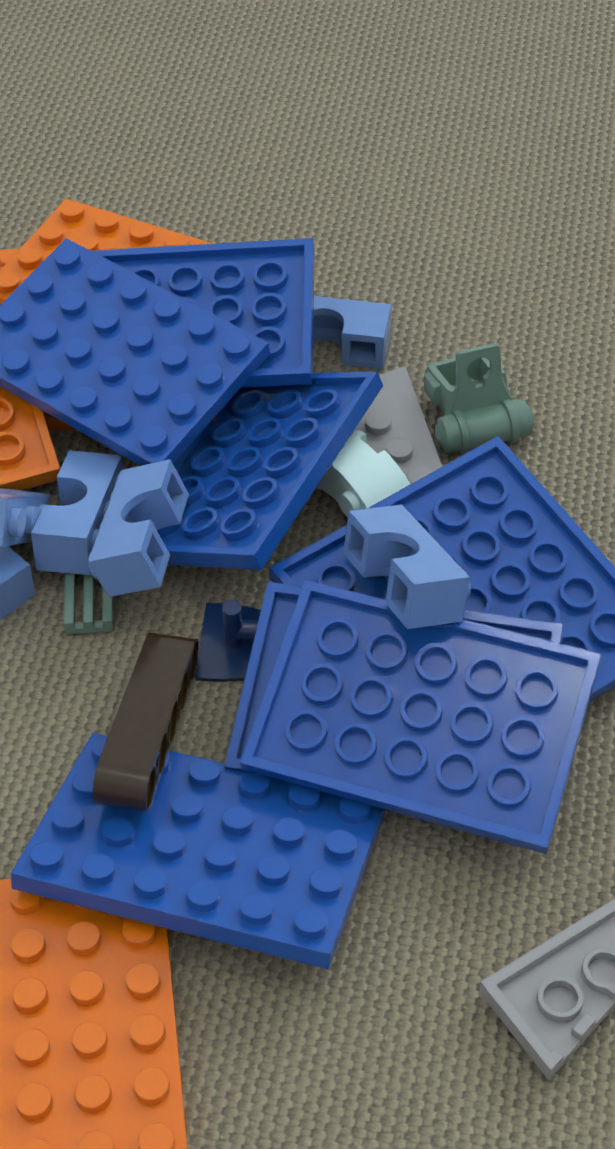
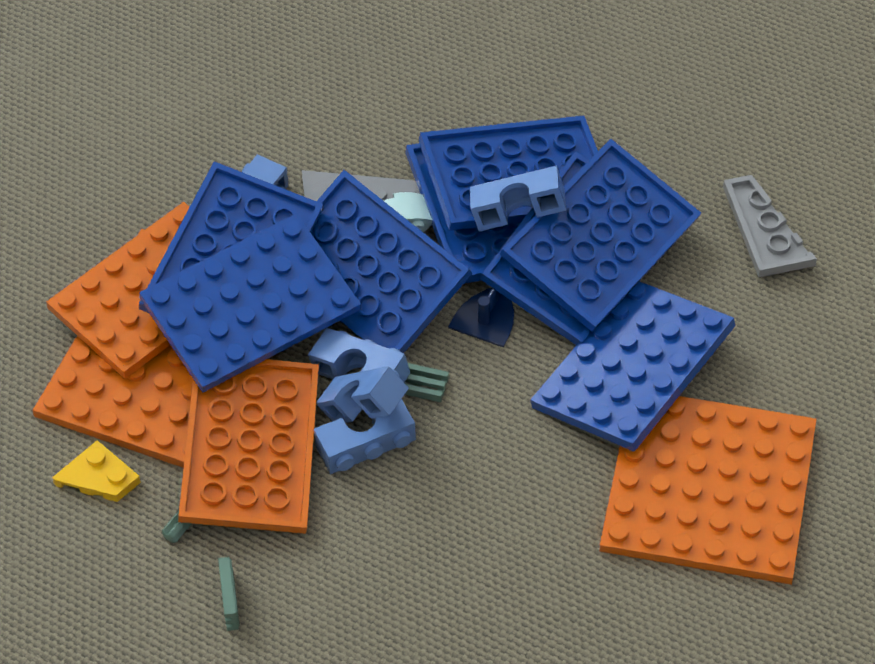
camera: 70 degrees left, 5 degrees up
(128, 548) = (426, 337): medium blue arch -> none
(146, 723) = (545, 362): dark brown beam -> none
(475, 401) = (356, 142): sand green piece -> none

